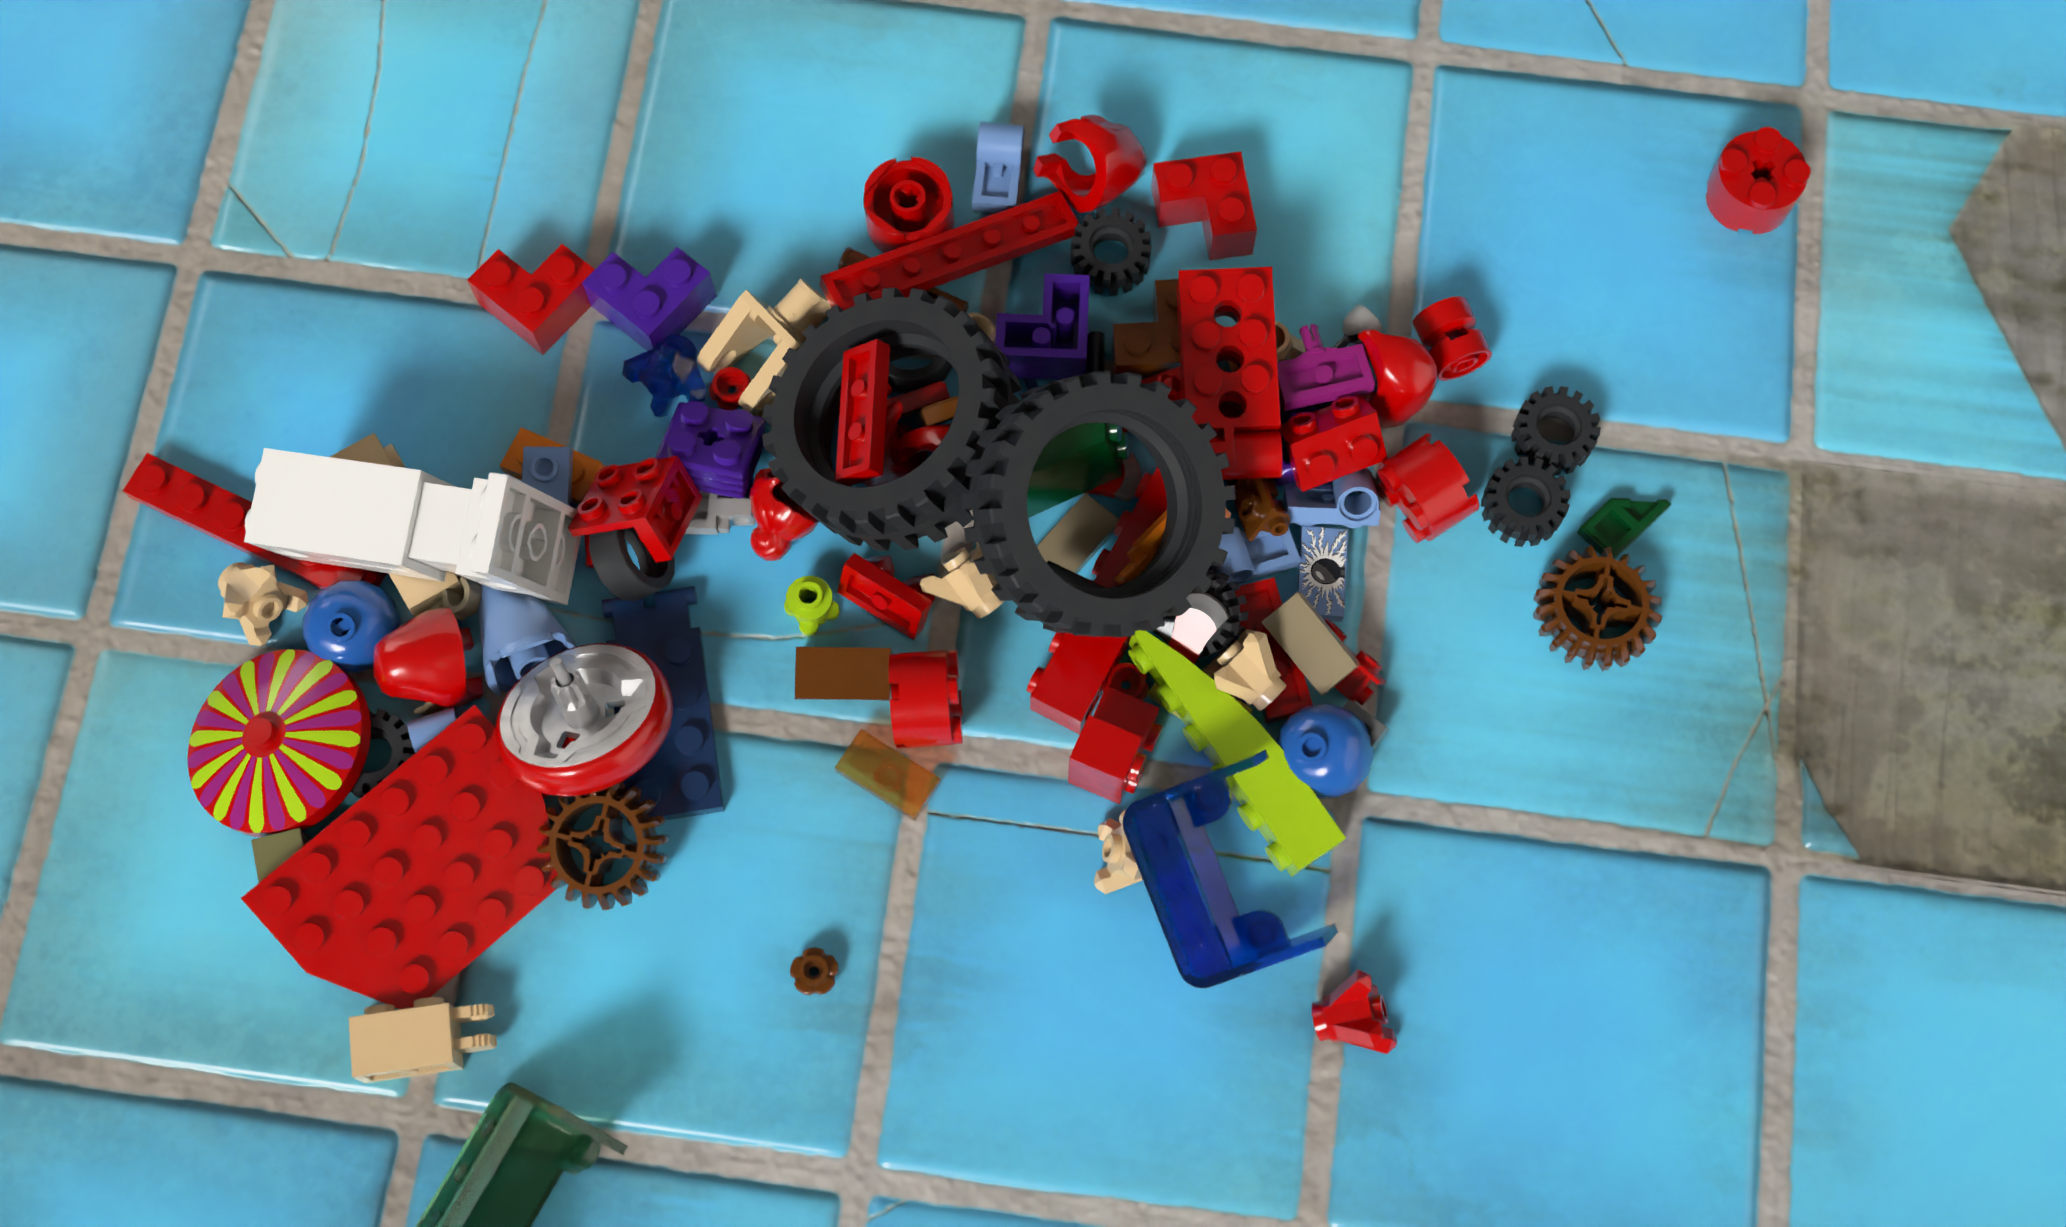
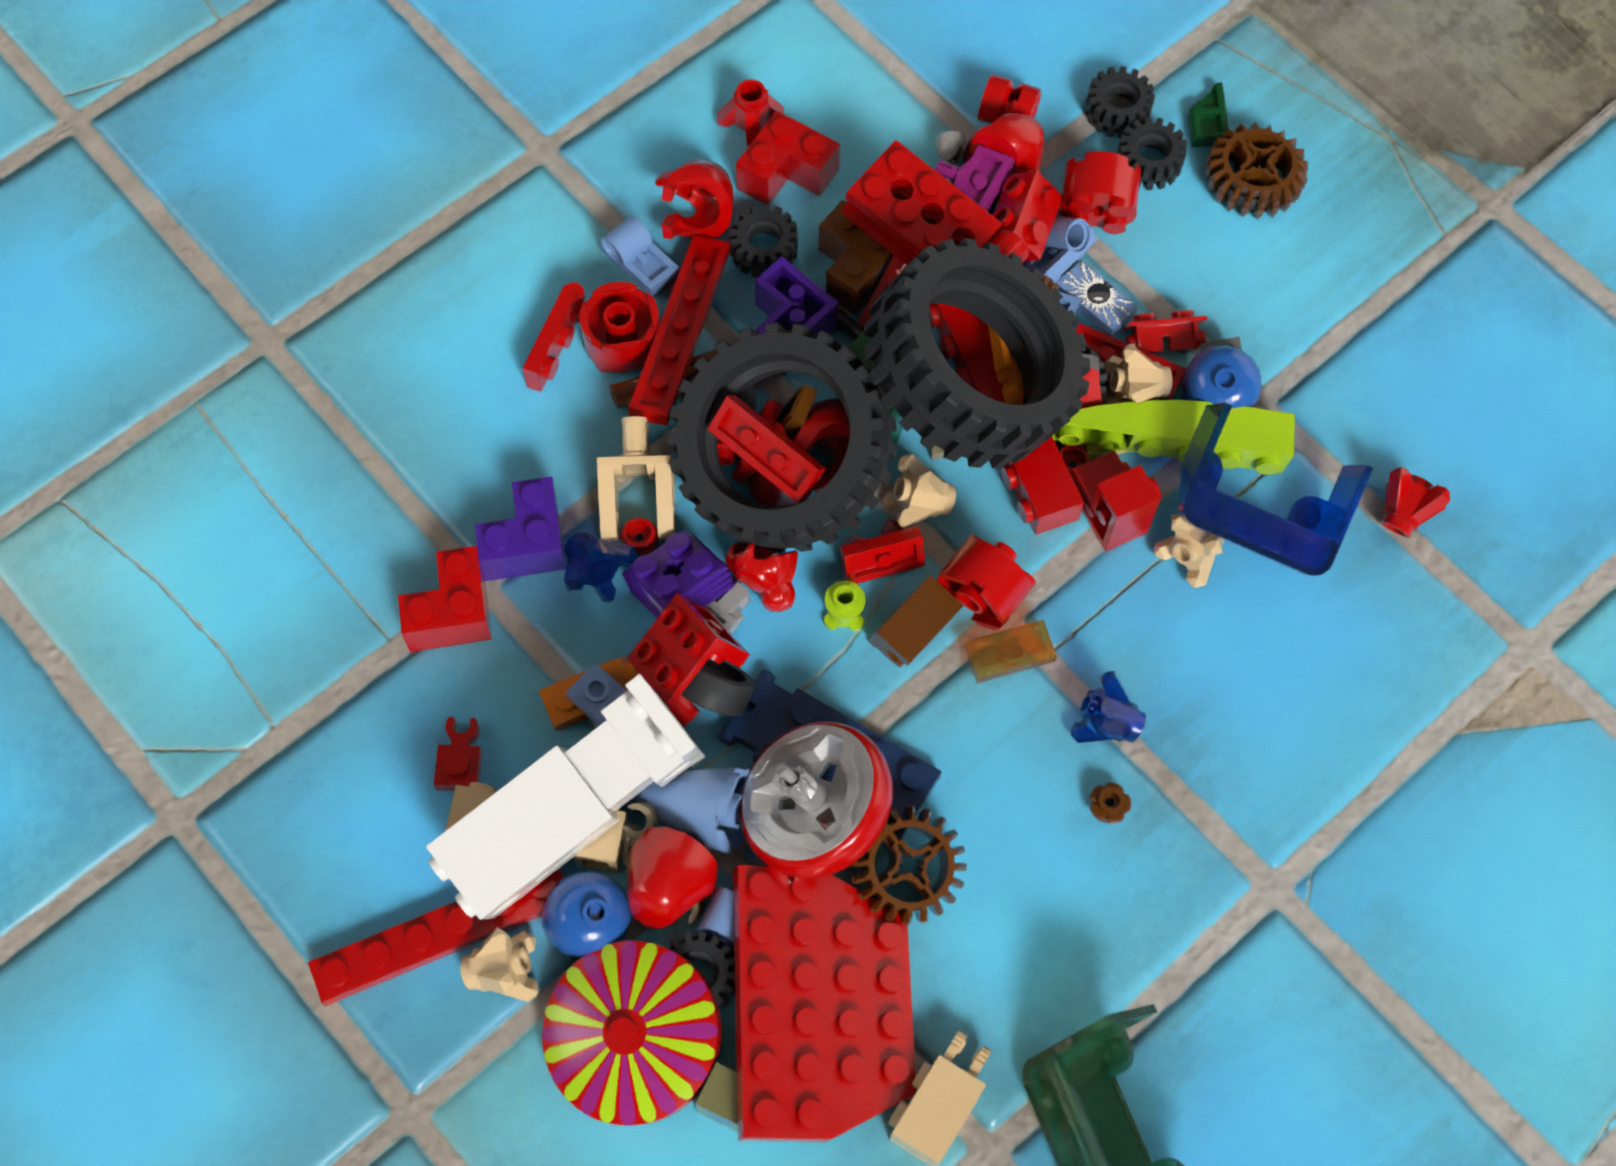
camera: 50 degrees left, 5 degrees down
(409, 421) = (459, 761): none -> red plate
(852, 166) = (554, 336): none -> red plate
(894, 905) = (1108, 714): none -> clear blue rock
(1234, 130) = (749, 109): none -> red rock
(1311, 643) = (1148, 332): dark tan tile -> none

